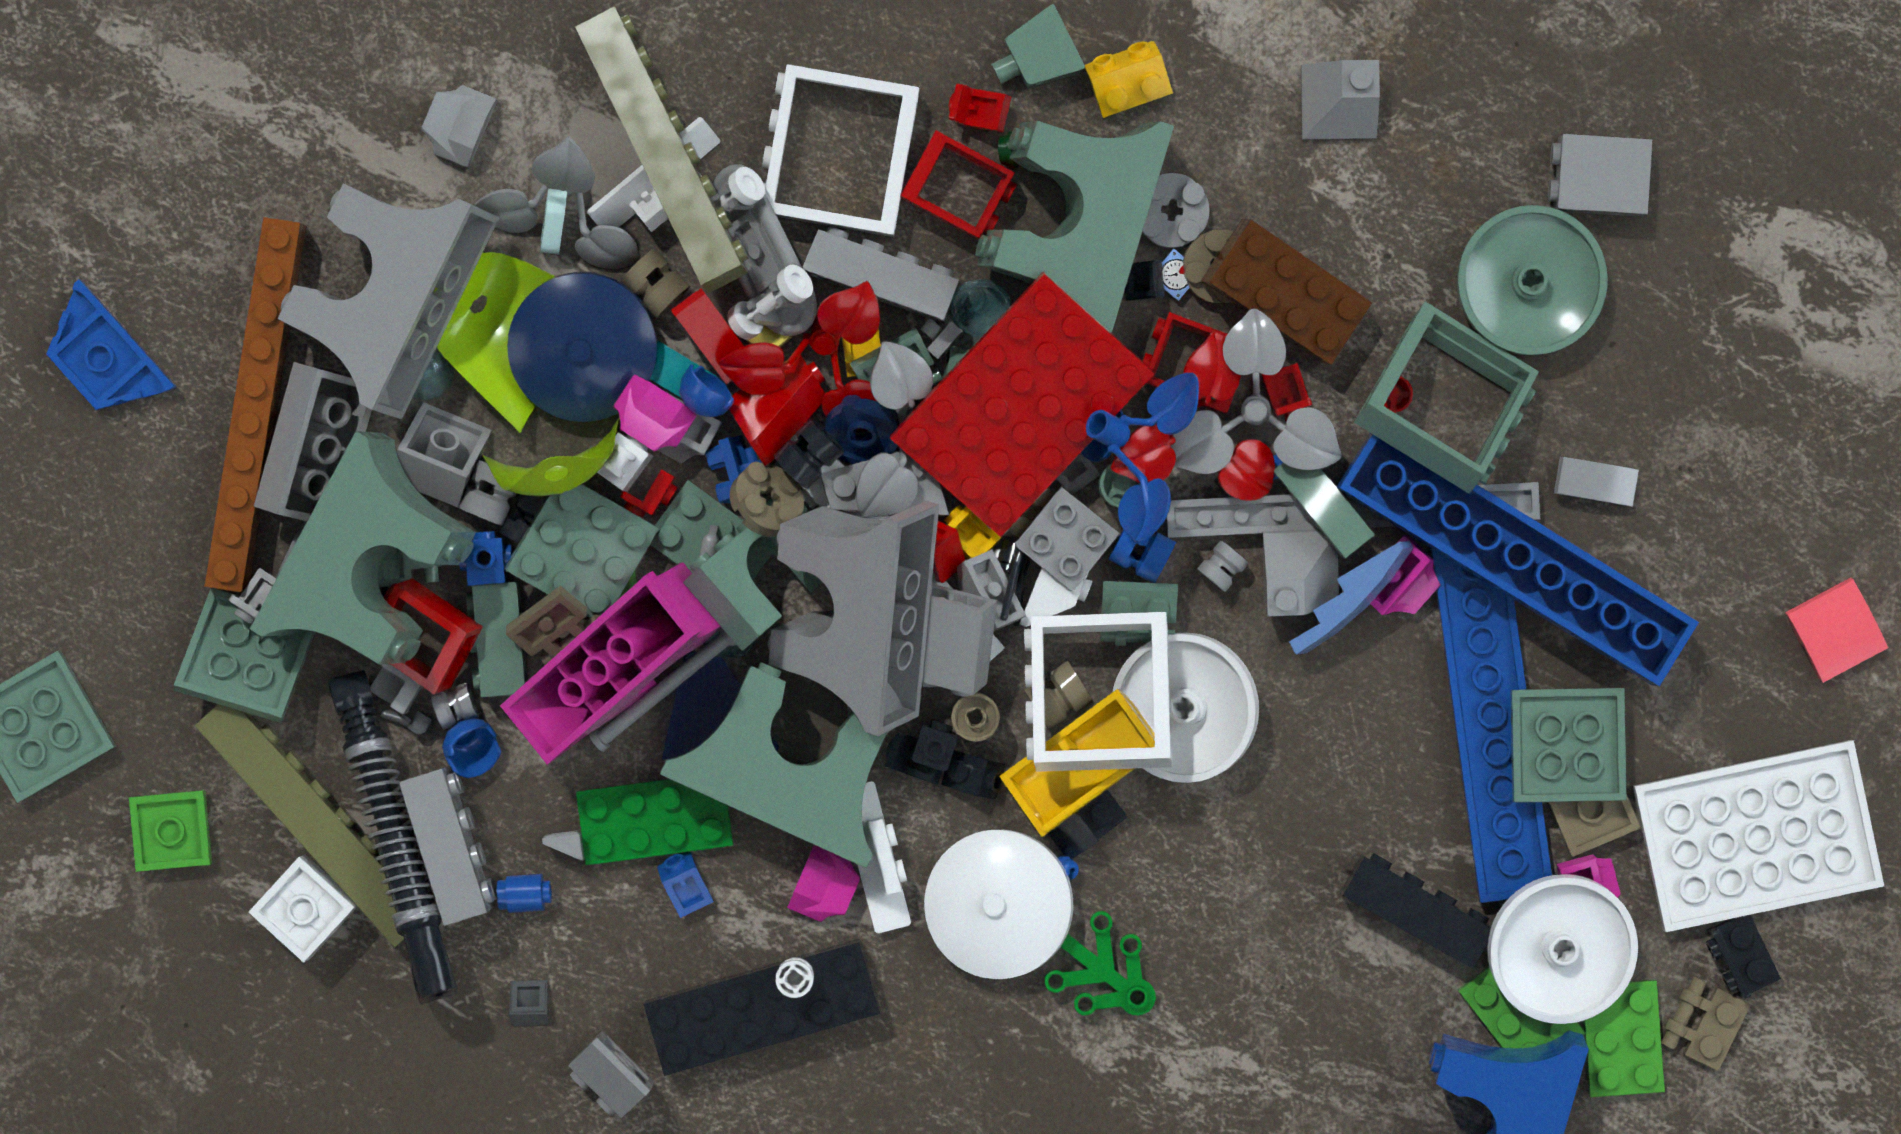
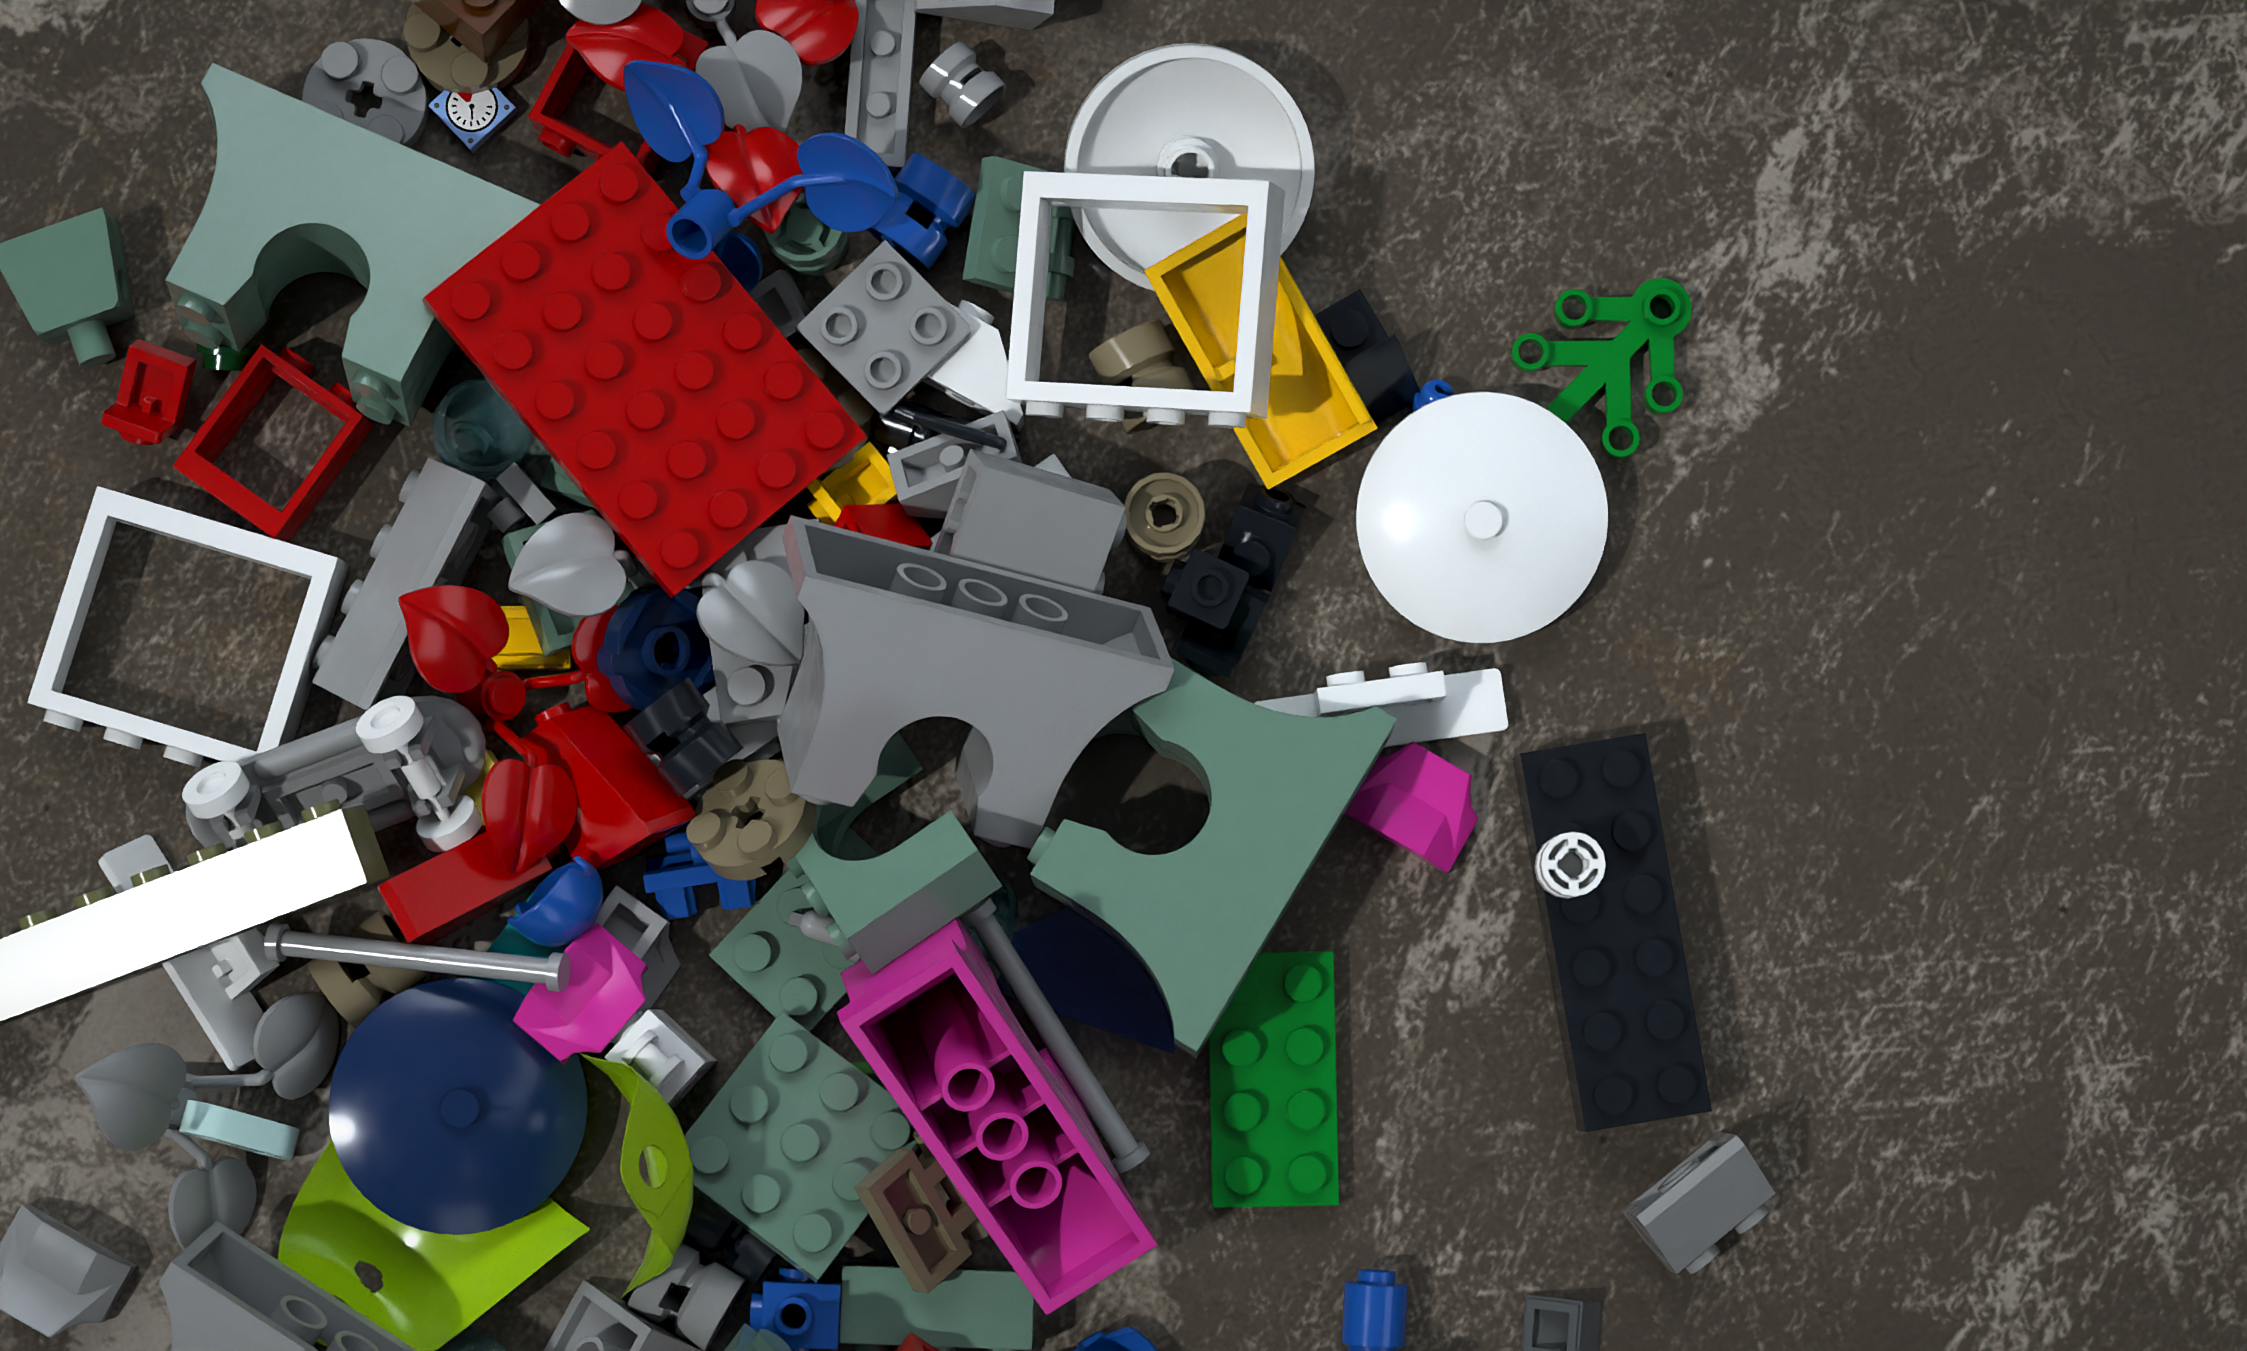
camera: 85 degrees left, 5 degrees down
(566, 842) = (1296, 1232): light grey slope -> none
(660, 492) = (723, 1003): red bracket -> none
(663, 315) = (550, 971): none -> light grey bar
(684, 883) = (1388, 1041): blue bracket -> none
(1128, 78) = (136, 144): yellow bracket -> none
(1145, 281) = (476, 151): black tile -> none

